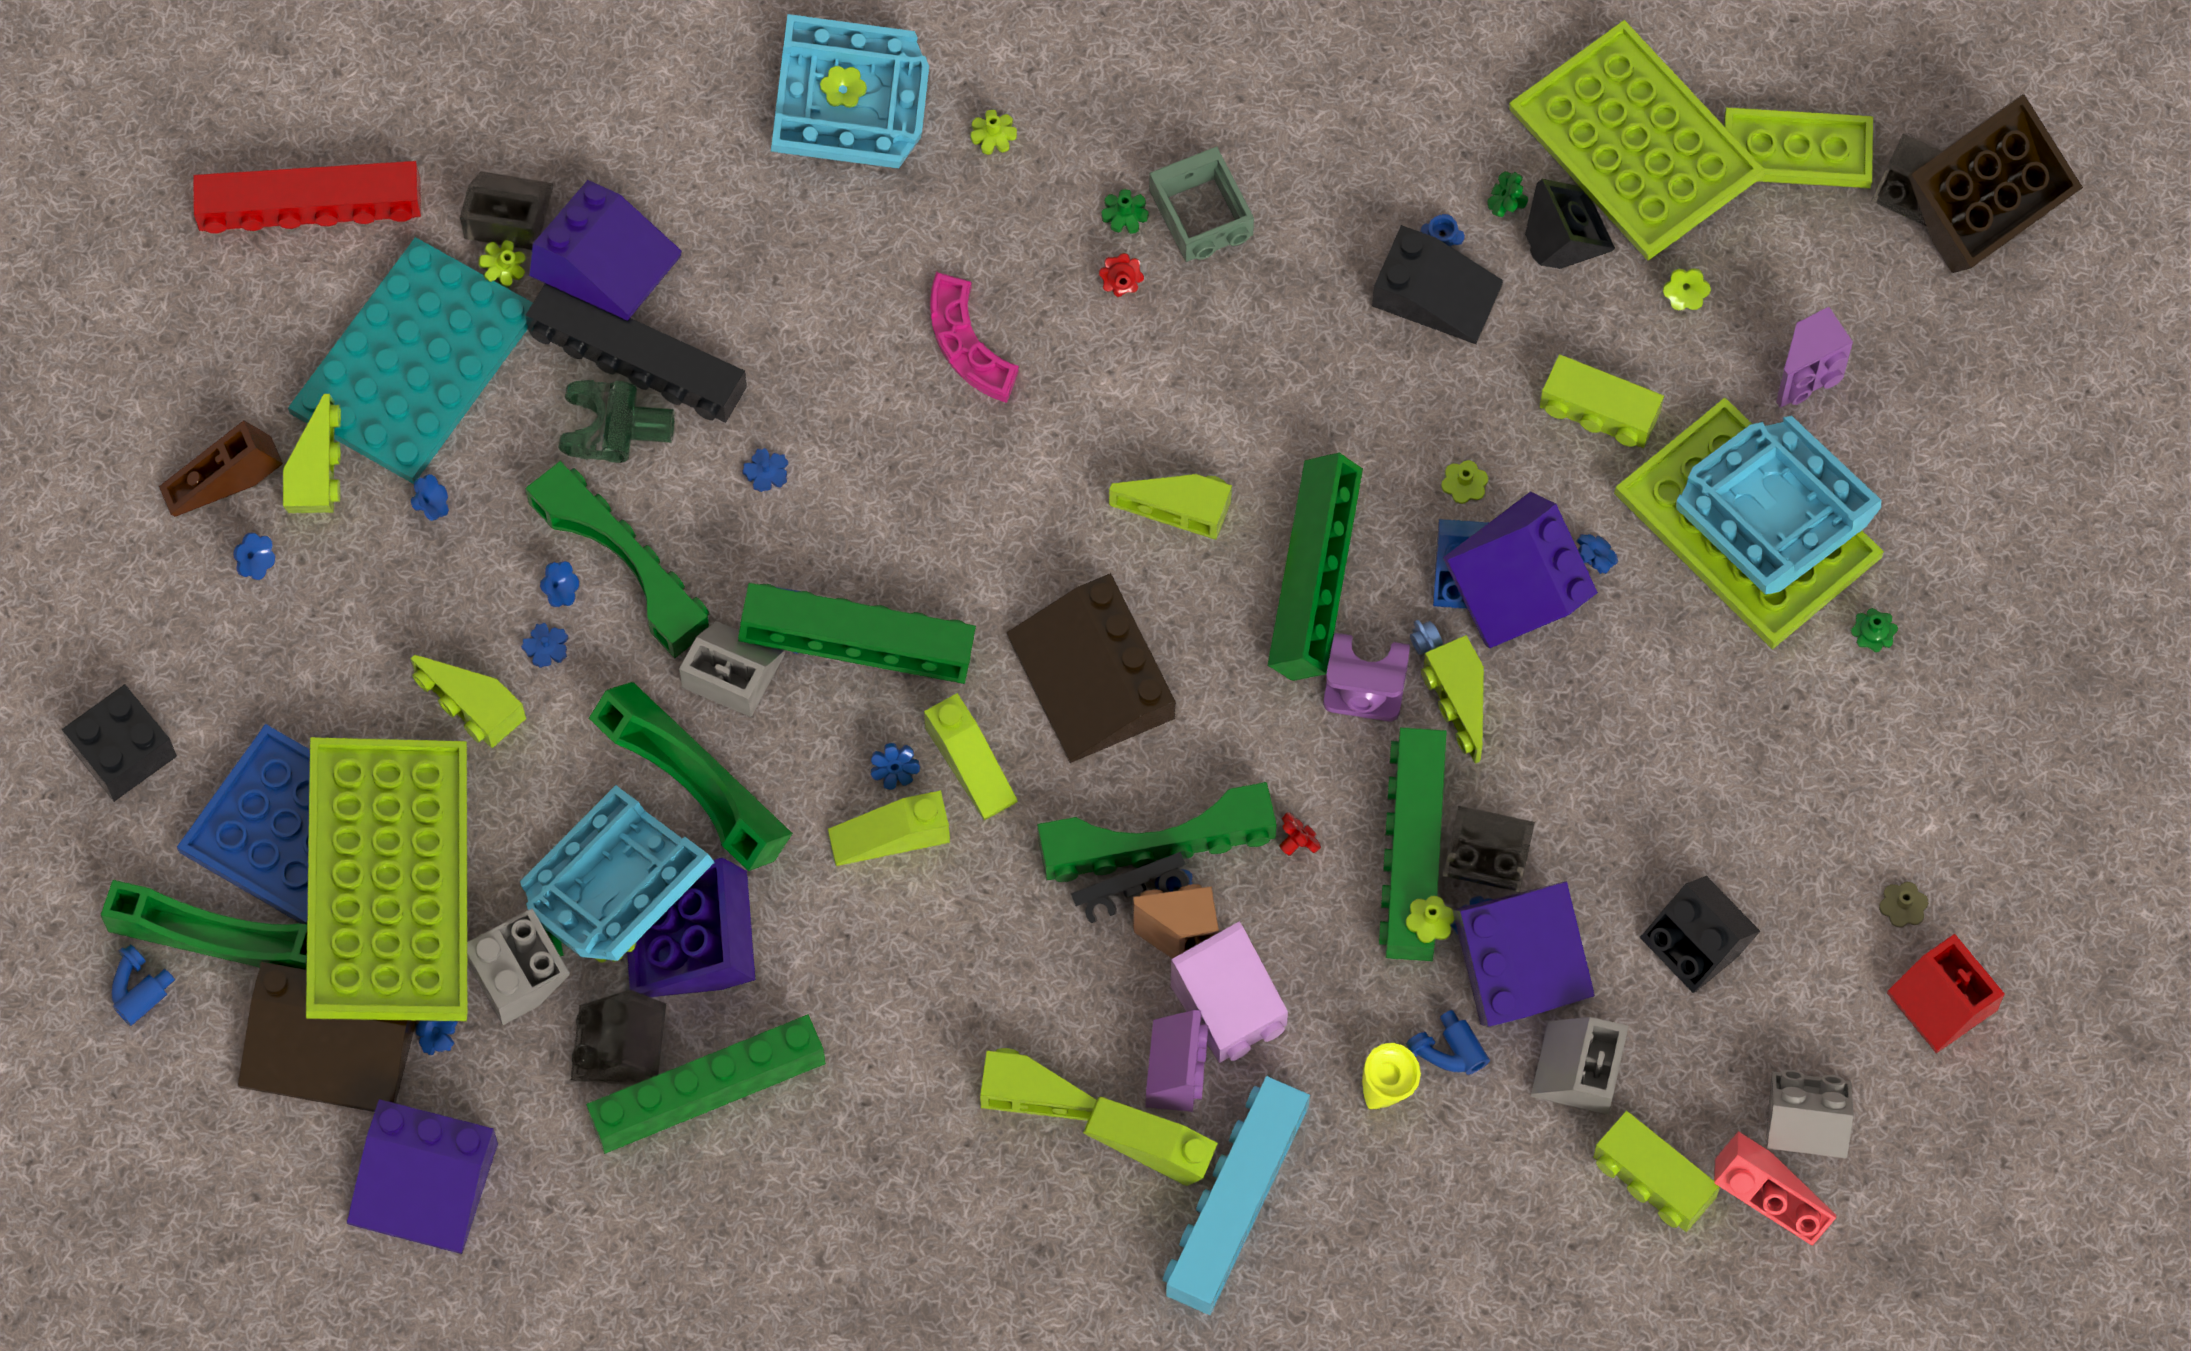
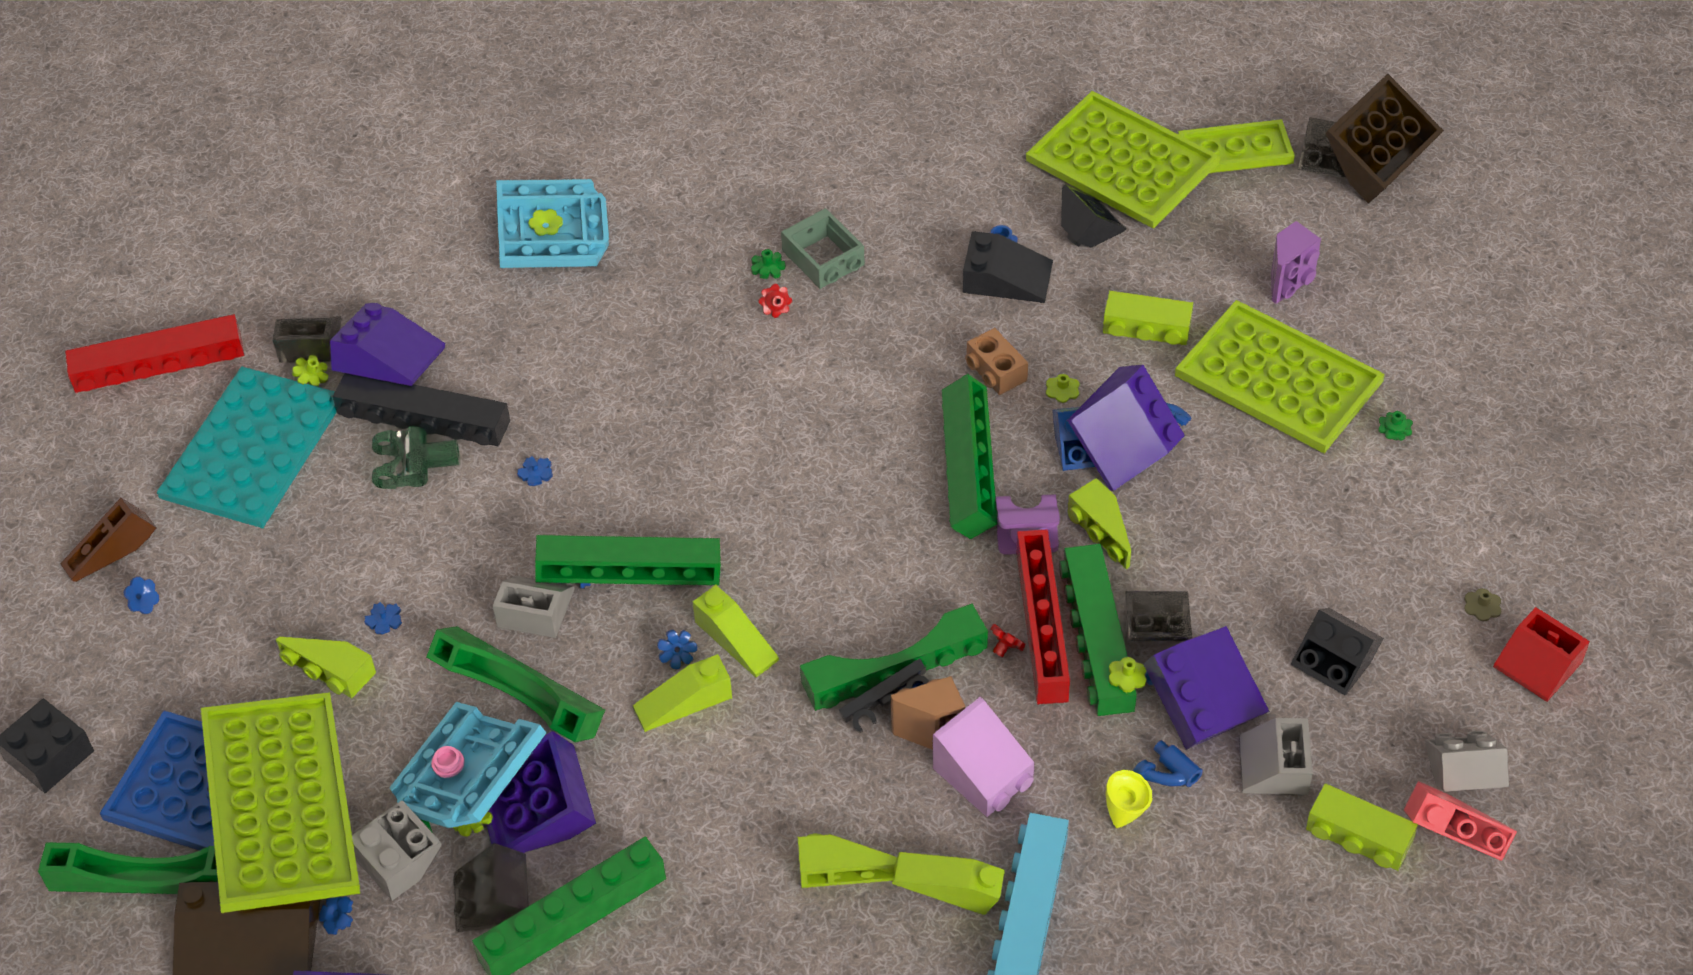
camera: 10 degrees left, 15 degrees down
(144, 995) = (83, 934): blue plant -> none
(310, 468) = (178, 526): lime slope -> none
(430, 497) = (276, 532): blue plant -> none
(559, 584) = (387, 571): blue plant -> none
(569, 506) = (386, 517): green arch -> none
(593, 868) = (447, 762): none -> bright pink plate
(959, 343) = (664, 365): dark pink tile -> none
(993, 132) = (660, 233): lime plant -> none
(1092, 669) = (817, 555): dark brown slope -> none
(1176, 1061) = (954, 815): medium lavender slope -> none
(1180, 501) = (854, 433): lime slope -> none
(1349, 815) = (1042, 617): none -> red brick
(1394, 427) = (996, 361): none -> medium nougat brick
(1425, 637) = (1063, 488): medium blue plate -> none
(1507, 194) = (1040, 206): green plant -> none
(1689, 294) = (1192, 241): lime plant -> none
(1776, 502) = (1298, 352): medium azure wedge -> none

